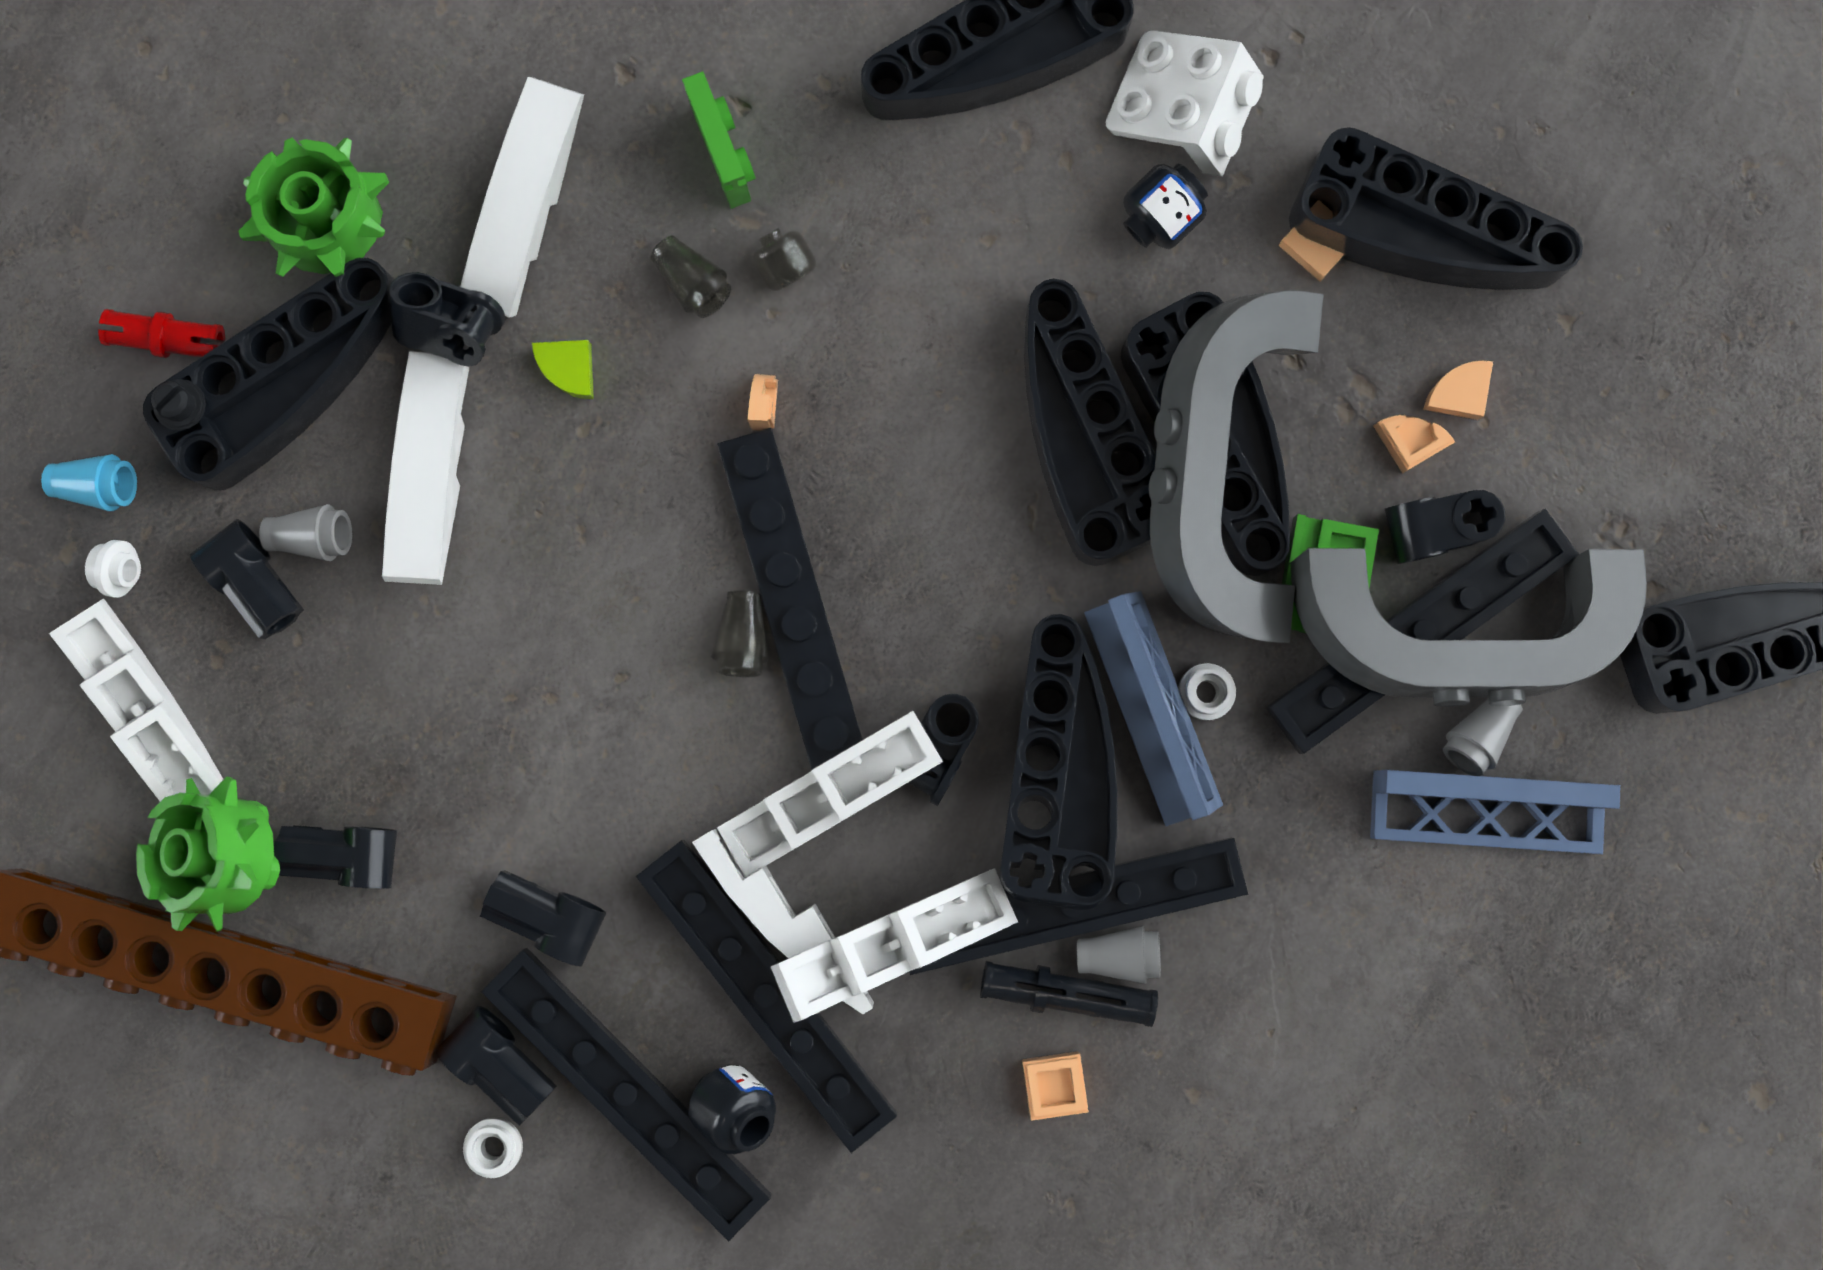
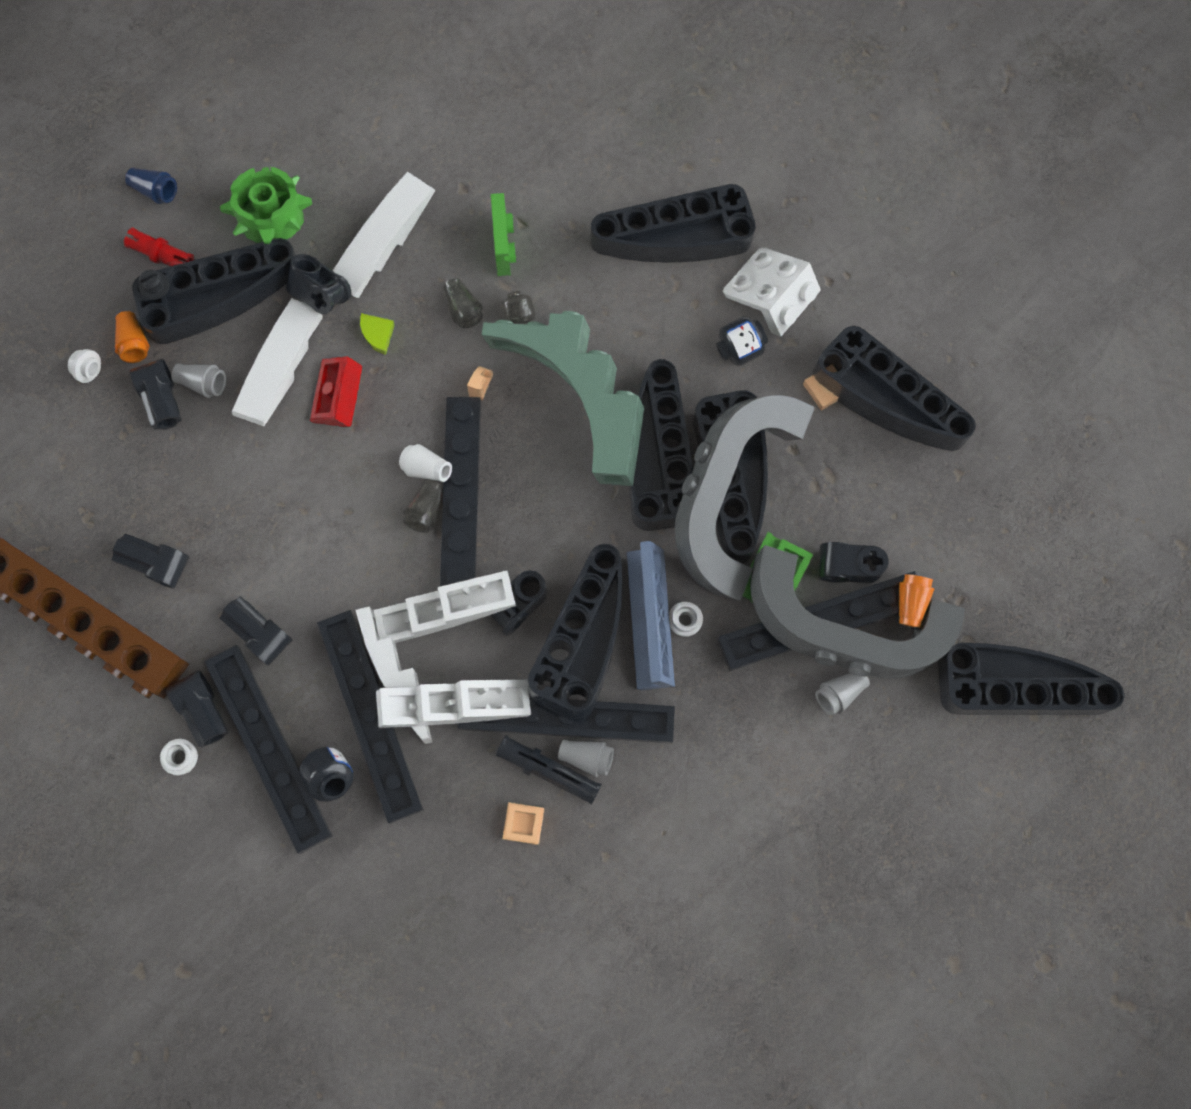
camera: 15 degrees right, 10 degrees down
(92, 482) = (90, 316): medium azure cone -> none
(109, 222) = (153, 184): none -> dark blue cone
(136, 703) = (70, 449): white slope -> none
(169, 499) = (129, 338): none -> orange cone
(207, 854) = (77, 532): bright green brick -> none
(535, 486) = (336, 392): none -> red slope
(716, 567) = (424, 464): none -> white cone
(882, 309) = (563, 348): none -> sand green arch
(1412, 439) = (848, 512): light nougat tile -> none
(1462, 391) = (885, 493): light nougat tile -> none
(1505, 791) = (839, 725): sand blue fence -> none
(1561, 559) = (914, 599): none -> orange cone

